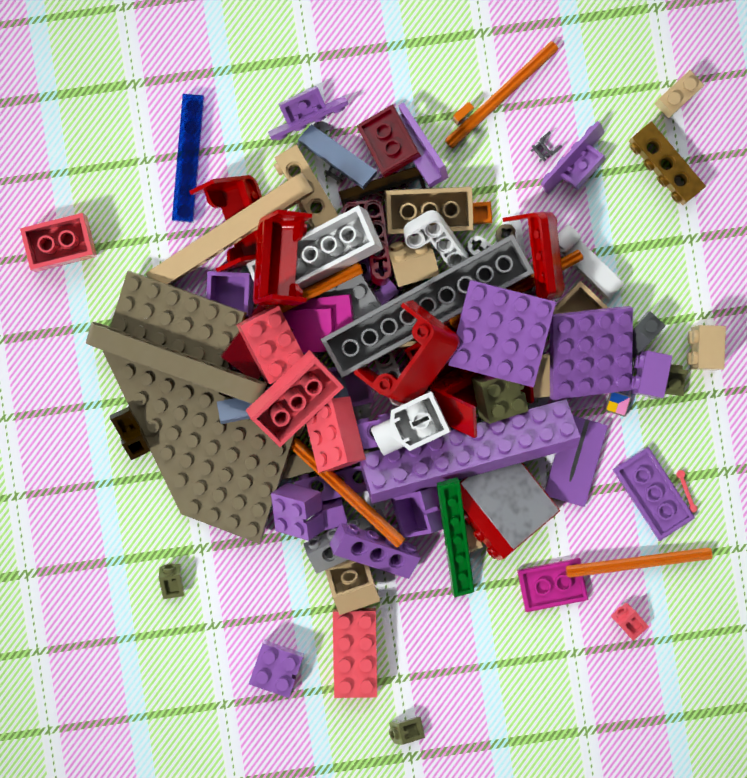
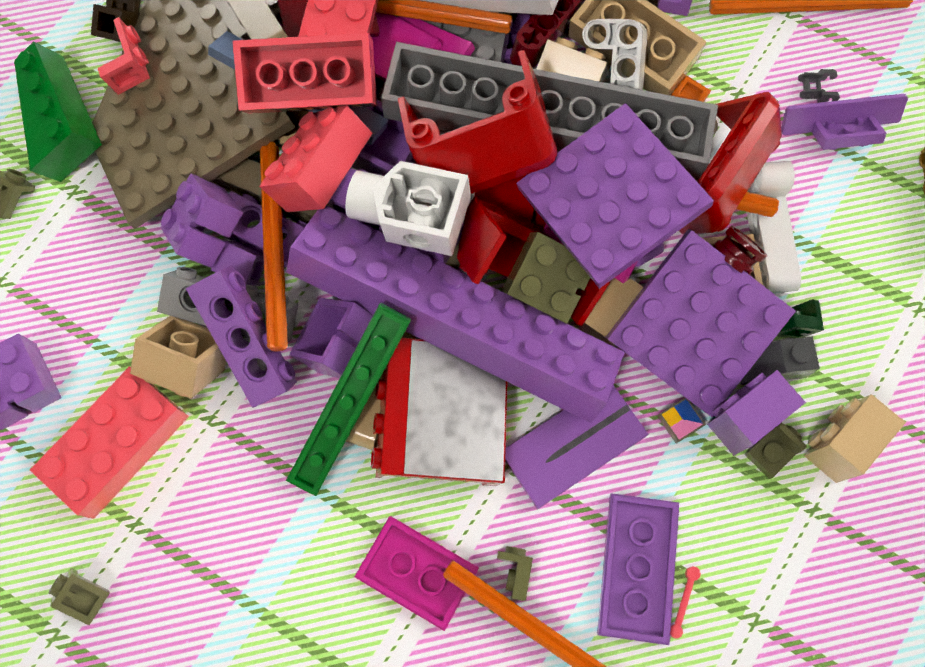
camera: 40 degrees right, 15 degrees down
(155, 518) = (53, 114): none -> green wedge
(174, 468) = (128, 68): none -> coral bracket
(582, 300) = (738, 253): none -> dark red wheel
(602, 547) = (517, 579): none -> olive bracket
(639, 300) = (804, 322): none -> dark green bracket

